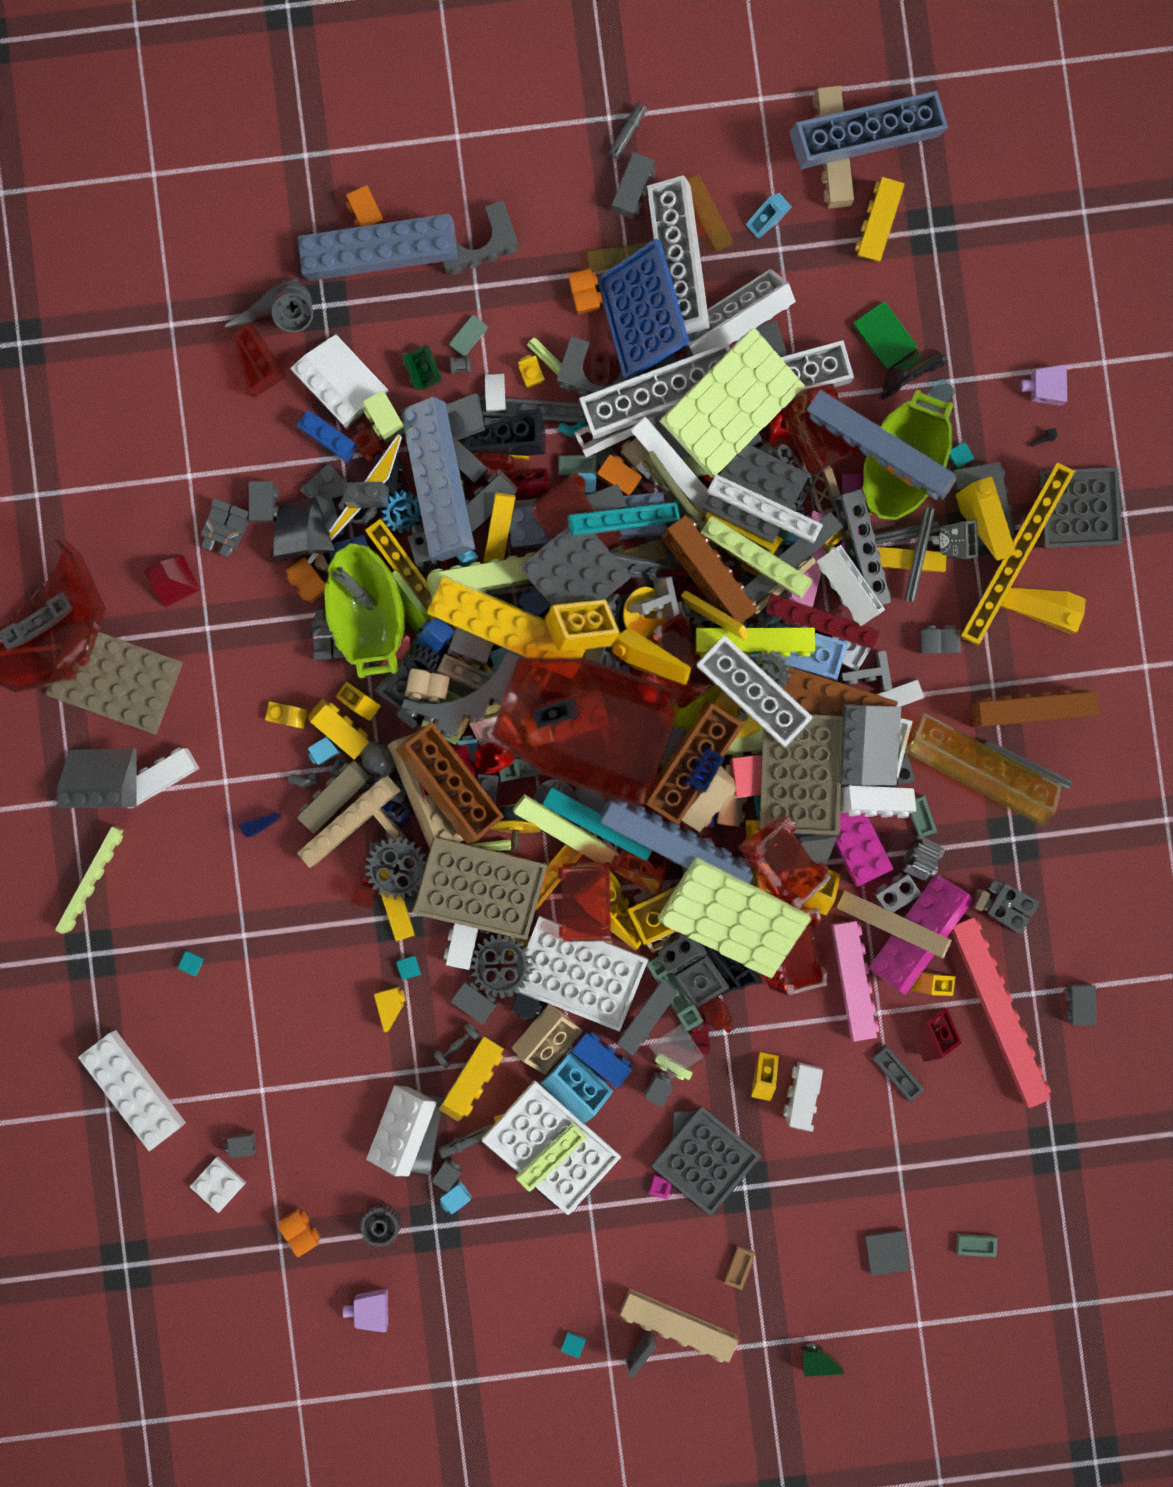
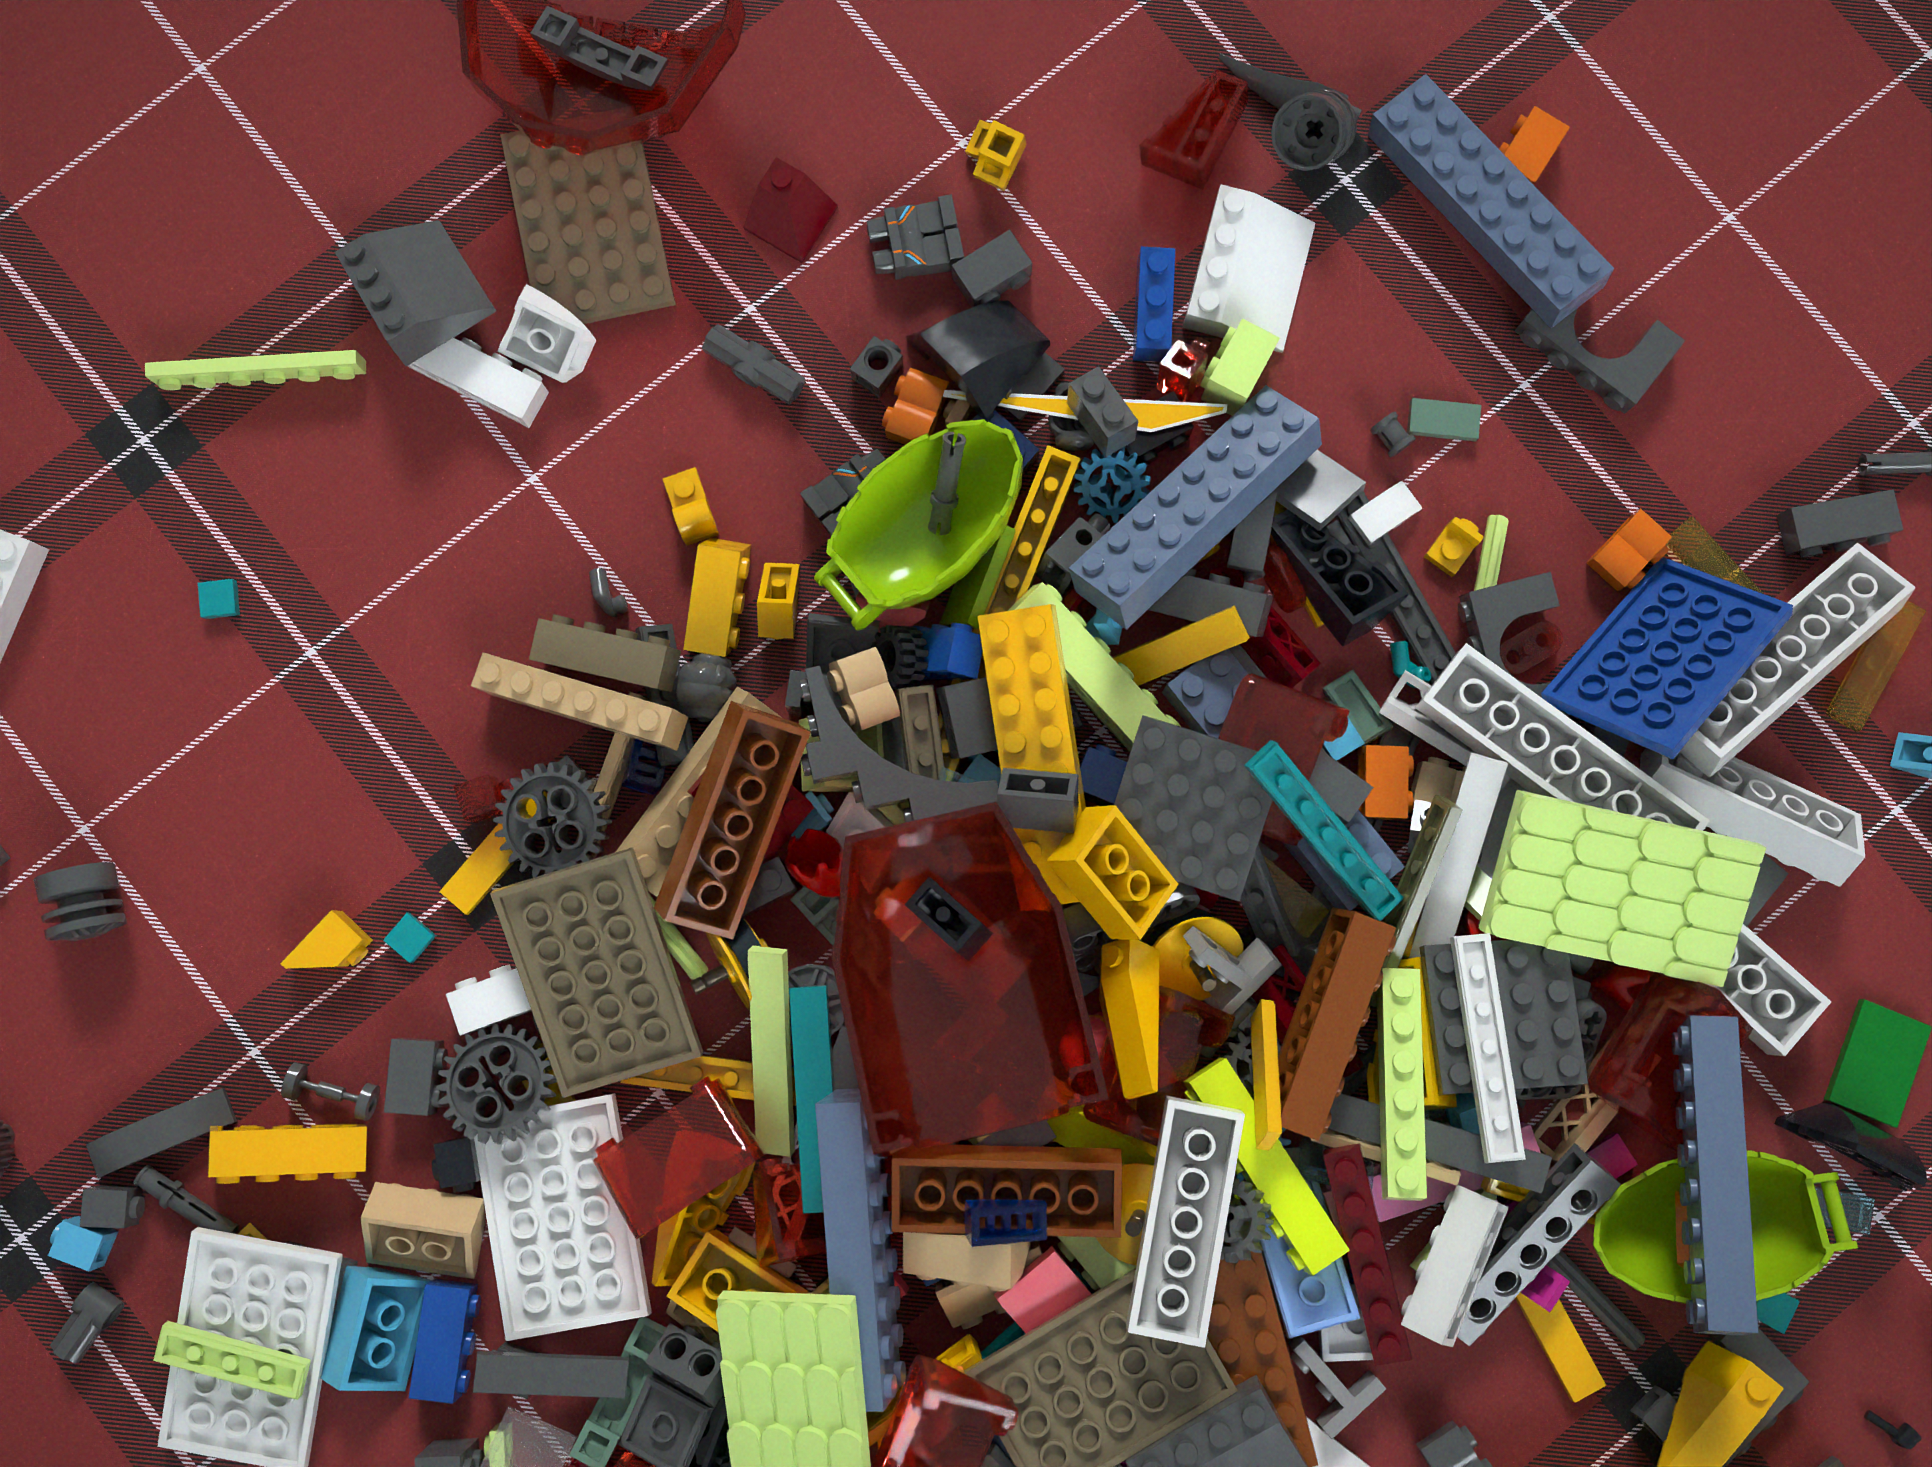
camera: 55 degrees right, 5 degrees down
(162, 732) = (547, 337): none -> white slope
(205, 463) = (997, 152): none -> yellow brick
(236, 643) = (753, 364): none -> dark grey piece
(255, 826) = (486, 563): clear blue slope -> none
(274, 594) = (877, 380): none -> dark grey brick
(297, 1107) = (80, 901): none -> dark grey wheel
(323, 751) = (667, 595): medium azure brick -> none
(324, 485) = (1076, 345): dark grey wing -> none
(401, 1131) = (137, 1090): white brick -> none
(422, 368) = (1348, 380): dark green bracket -> none
(490, 1211) = (92, 1313): none -> dark grey piece
(528, 638) = (1039, 799): none -> dark grey brick
(887, 551) = (1546, 1288): none -> dark pink plate
(919, 554) = (1574, 1343): dark grey axle -> none
(958, 540) = (1640, 1394): dark grey torso -> none

